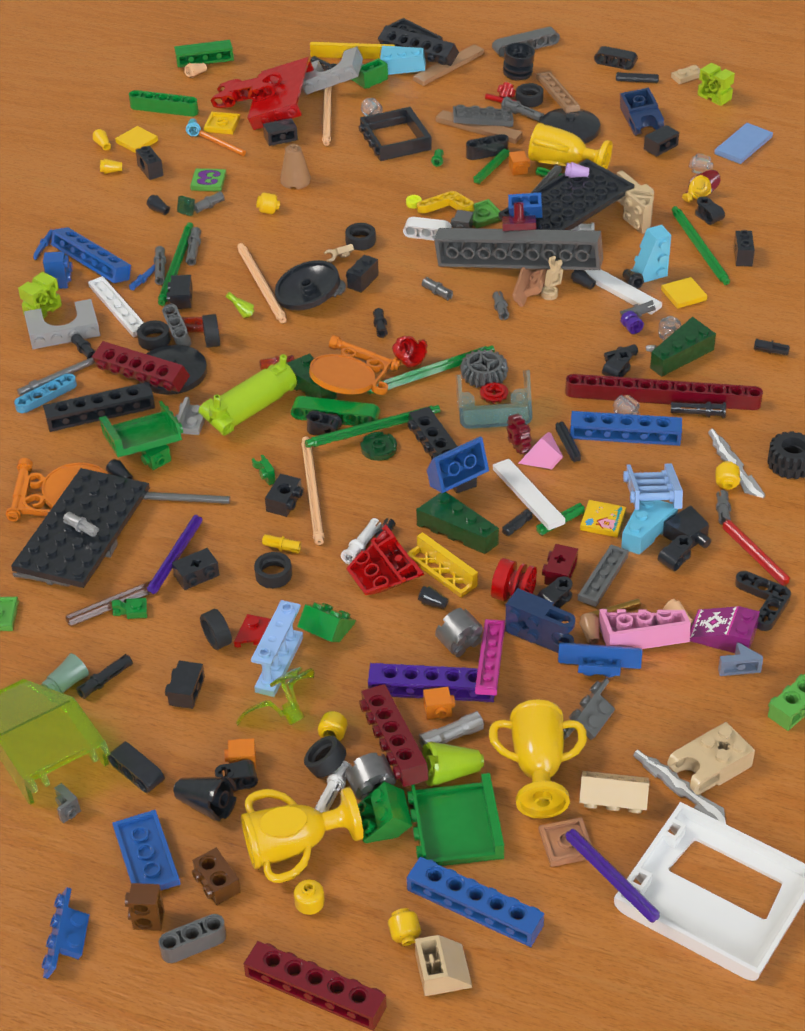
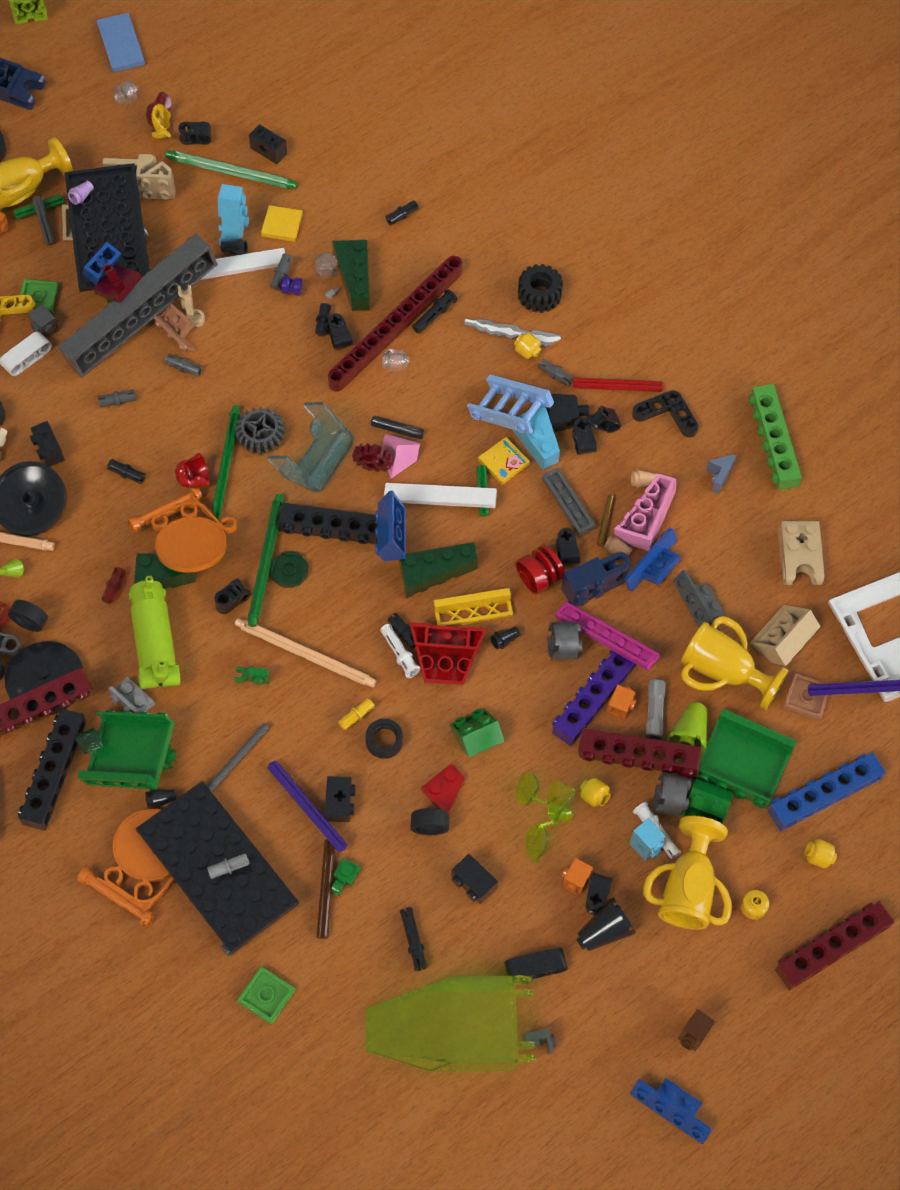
camera: 60 degrees left, 20 degrees up
(66, 674) = (394, 972): sand green plant -> none
(135, 409) = (89, 741): none -> clear green tile
(146, 850) = (631, 1003): blue plate -> none
(181, 940) = (744, 1002): dark grey beam -> none
(218, 874) = (689, 956): reddish brown brick -> none
(277, 647) = (491, 785): light blue fence -> none
(283, 495) = (300, 689): black brick -> none
(310, 780) = (647, 840): none -> medium azure brick
(325, 756) = (613, 817): black tyre -> none
(350, 412) = (230, 568): green beam -> none
(441, 965) = (871, 849): tan slope -> none
(500, 390) = (292, 435): red gear -> none
(517, 522) = (463, 523): black axle -> none
(561, 563) = (538, 524): dark red brick -> none
(582, 278) = (205, 283): black cone -> none
(626, 428) = (449, 349): blue brick -> none
(661, 140) = (66, 97): black brick -> none
(680, 786) = (804, 590): light grey sword -> none
(708, 557) = (605, 420): none -> black piece
(725, 627) = (682, 456): magenta slope -> none

